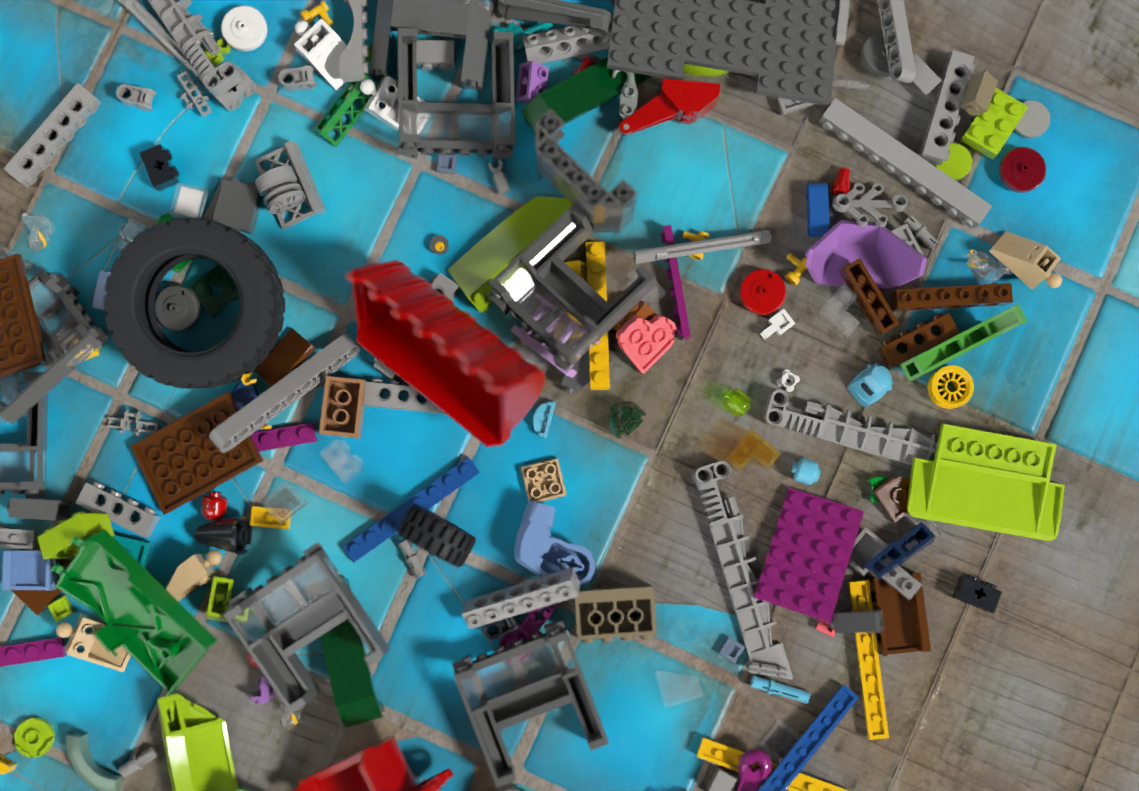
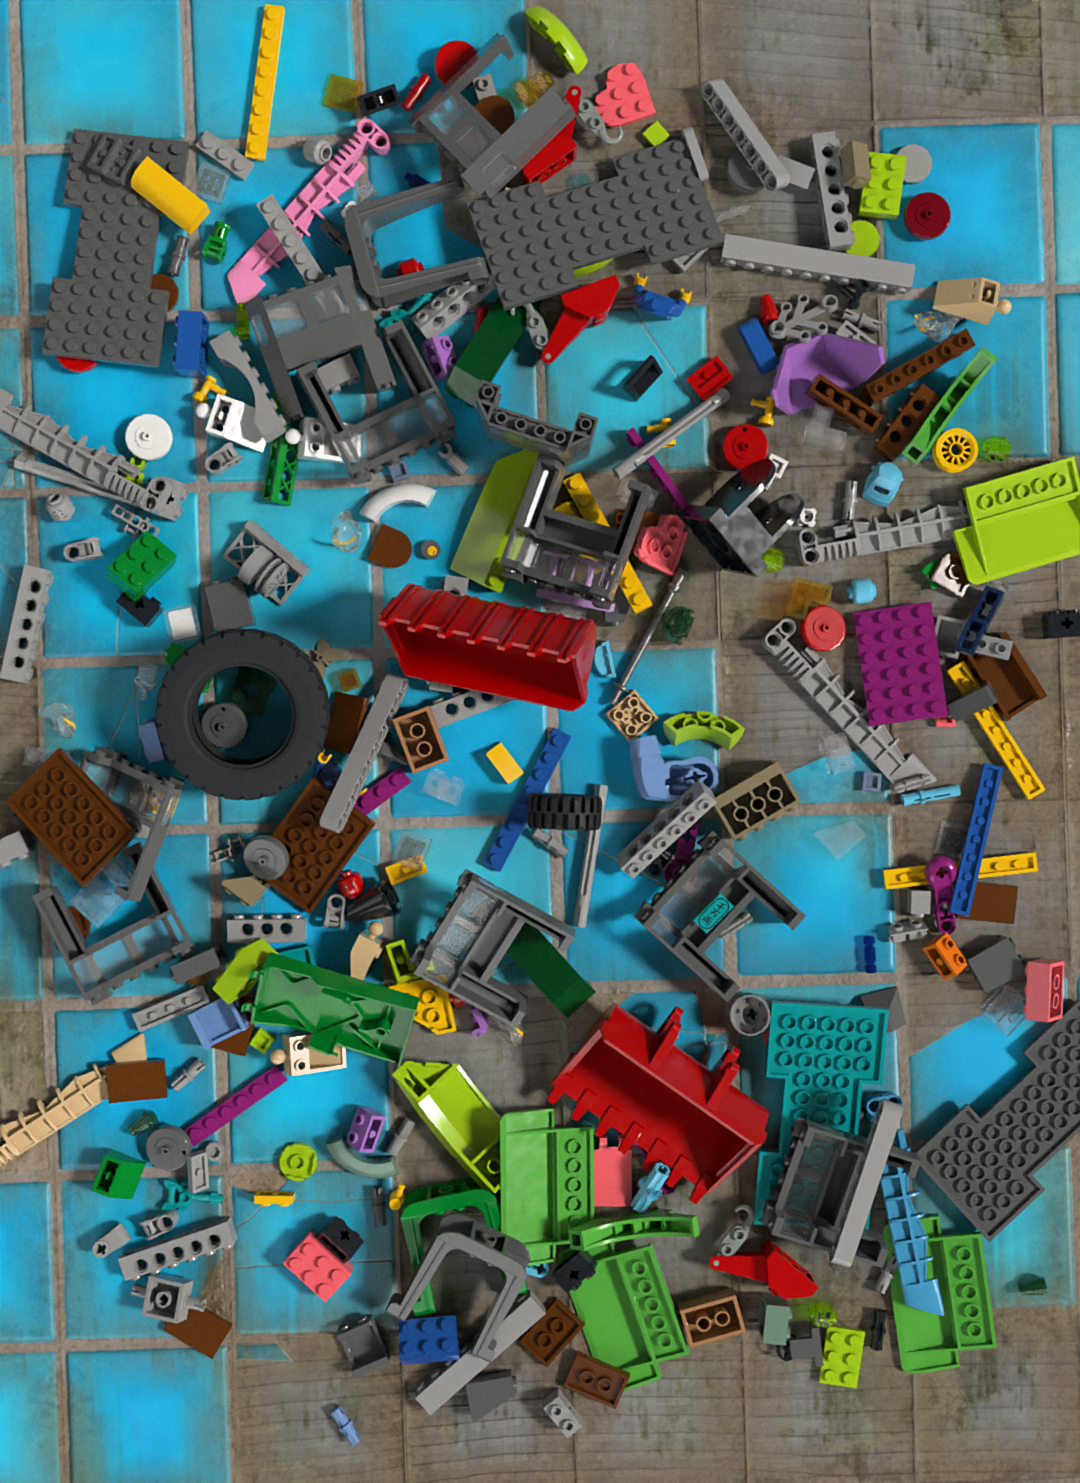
camera: 25 degrees left, 5 degrees up
(34, 524) = (199, 980): none -> clear orange plate
(108, 738) = (365, 1129): none -> medium lavender brick
(119, 463) = (247, 887): none -> dark tan slope
(135, 49) = (60, 506): none -> light grey head
(149, 443) = (266, 857): none -> dark grey wheel
(177, 133) = (141, 566): none -> green brick
(185, 526) = (335, 915): none -> light grey piece
(228, 653) = (433, 1007): none -> yellow plate
(297, 290) = (325, 654): none -> dark tan piece
(308, 324) = (350, 680): none -> clear orange plate
(311, 406) = (392, 753): none -> dark grey piece
(371, 192) = (345, 532): none -> clear hair
(405, 226) = (391, 548): none -> reddish brown tile
(407, 466) = (504, 763): none -> yellow slope
(431, 182) = (396, 495): none -> white brick
(438, 595) = (588, 866): none -> light grey piece
(525, 697) = (712, 912): none -> teal tile
(543, 719) = (736, 924): none -> light grey axle
(602, 522) = (703, 726): none -> lime brick
(637, 385) = (673, 588): none -> flat silver bar
(701, 187) = (643, 378): none -> black tile
(712, 354) = (731, 530): none -> black piece
(712, 607) = (837, 753): none -> clear brick
(746, 129) = (657, 303): none -> blue torso
(754, 488) = (823, 629): none -> wheel
(760, 216) = (709, 378): none -> red plate
(834, 385) = (849, 500): none -> light grey pin
(934, 201) = (861, 287): none -> black piece
(989, 403) = (996, 448): none -> clear neon green head

